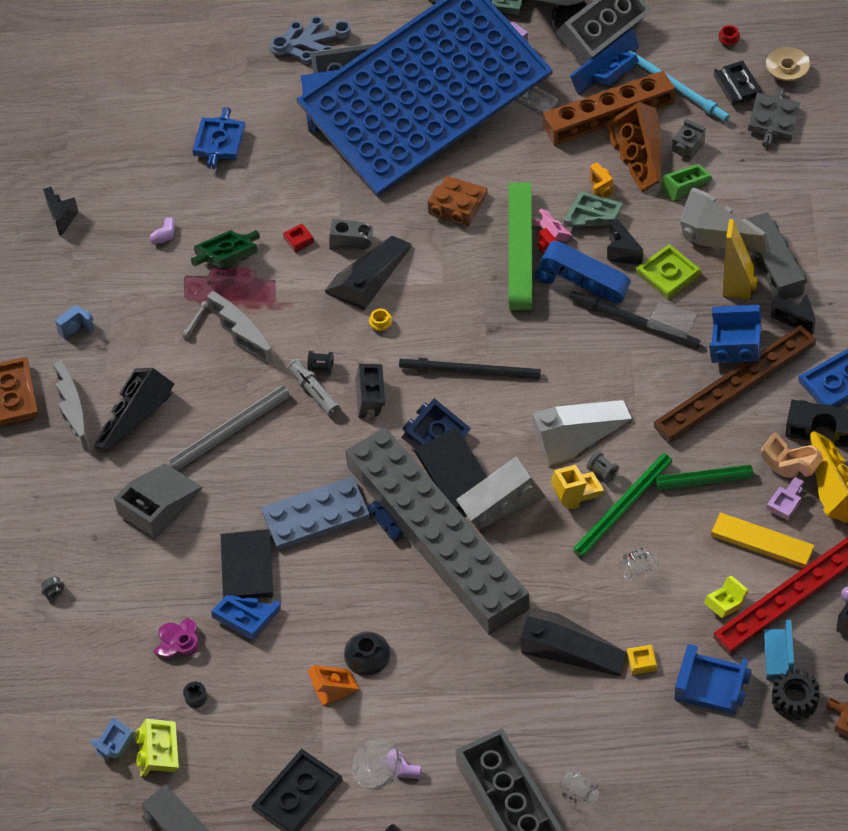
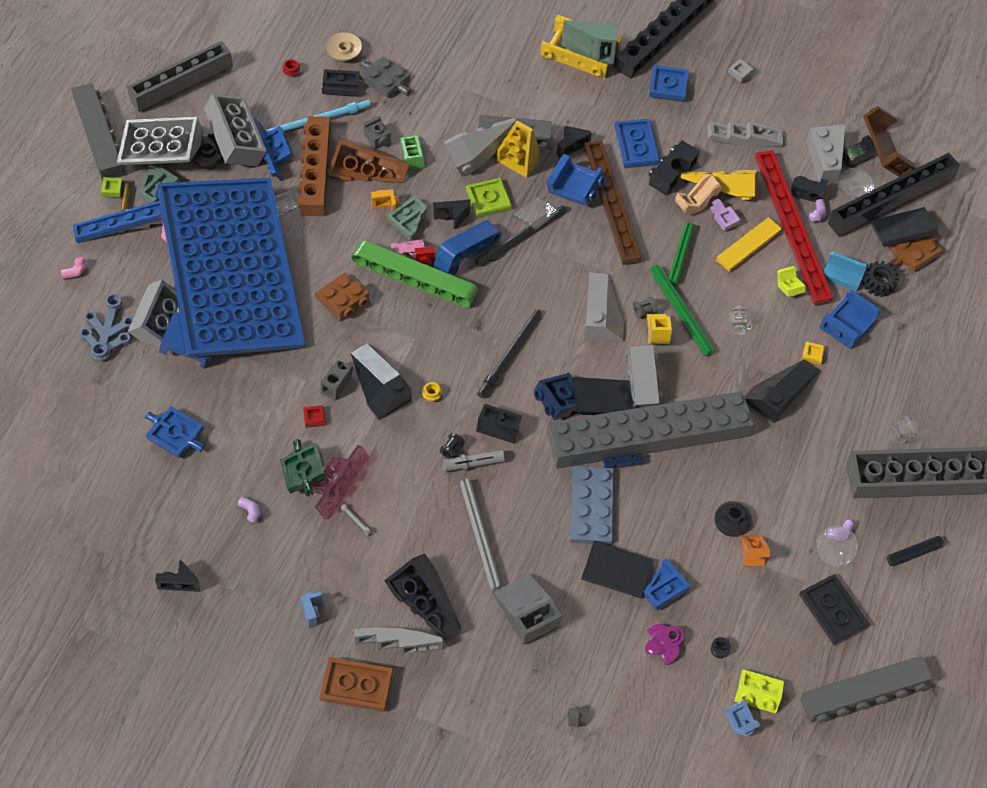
camera: 75 degrees left, 5 degrees up
(243, 331) = (393, 486): light grey slope -> none

